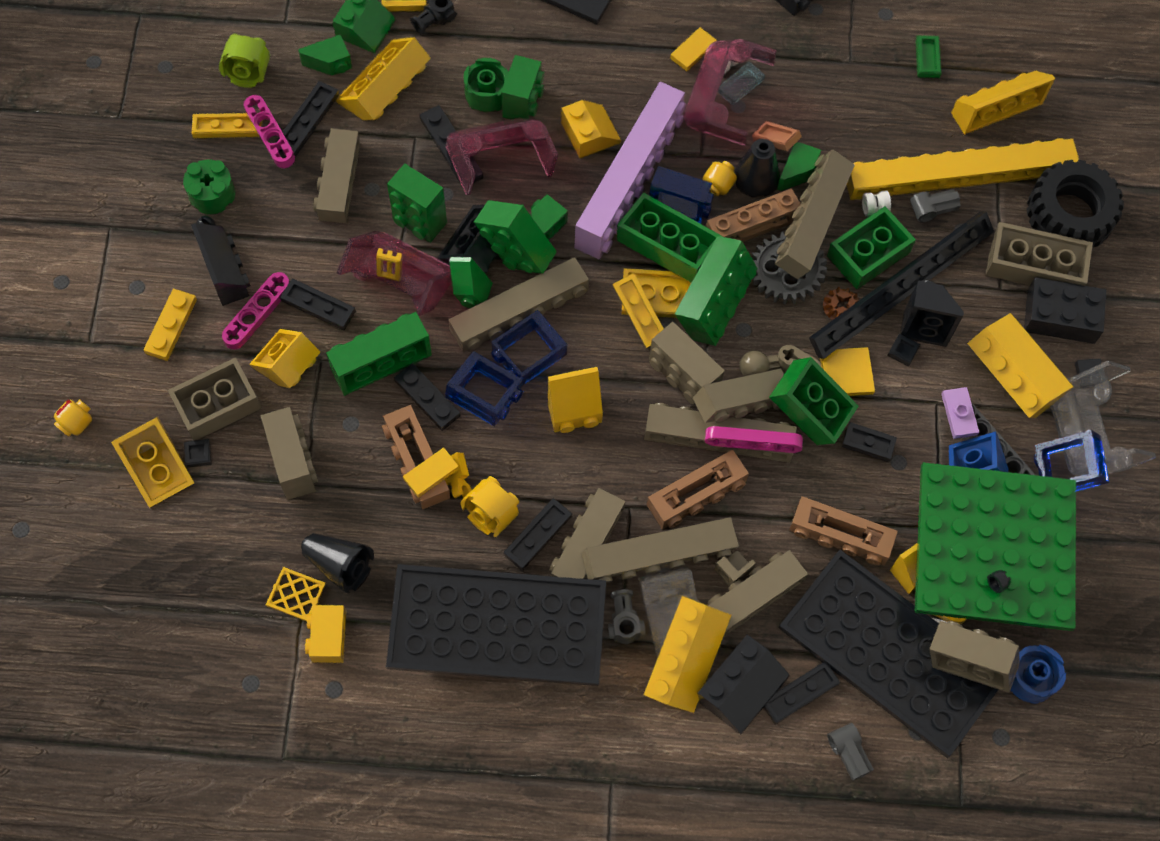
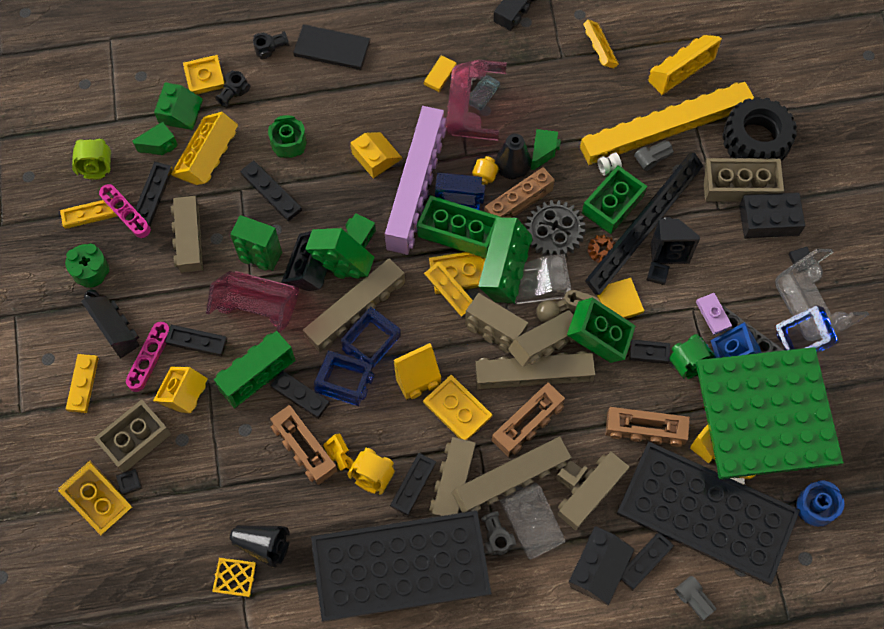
camera: 10 degrees left, 0 degrees up
(72, 417) = (21, 477): yellow head -> none
(290, 452) = (203, 465): dark tan brick -> none
(326, 634) = (266, 603): yellow brick -> none
(390, 260) = (245, 292): yellow tile -> none
(430, 472) = (318, 455): yellow tile -> none
(469, 282) = (312, 296): green slope -> none
(473, 140) = (285, 185): clear pink windscreen -> none
(522, 88) = (316, 134): green brick -> none
(614, 456) = (457, 408): none -> yellow plate
(687, 654) = (553, 553): yellow slope -> none
(753, 439) = (562, 371): dark pink beam -> none
(758, 326) = (544, 280): none -> clear slope
(780, 136) = (523, 127): nougat tile -> none
(814, 214) = (566, 183): dark tan brick -> none
(902, 55) = (600, 44): none -> yellow plate
(912, 453) = (686, 355): none -> green brick
(928, 56) = (620, 40): green tile -> none
(975, 655) = (773, 502): dark tan brick -> none
(998, 581) = (778, 440): black hinge -> none
(1020, 365) = (749, 266): yellow slope -> none

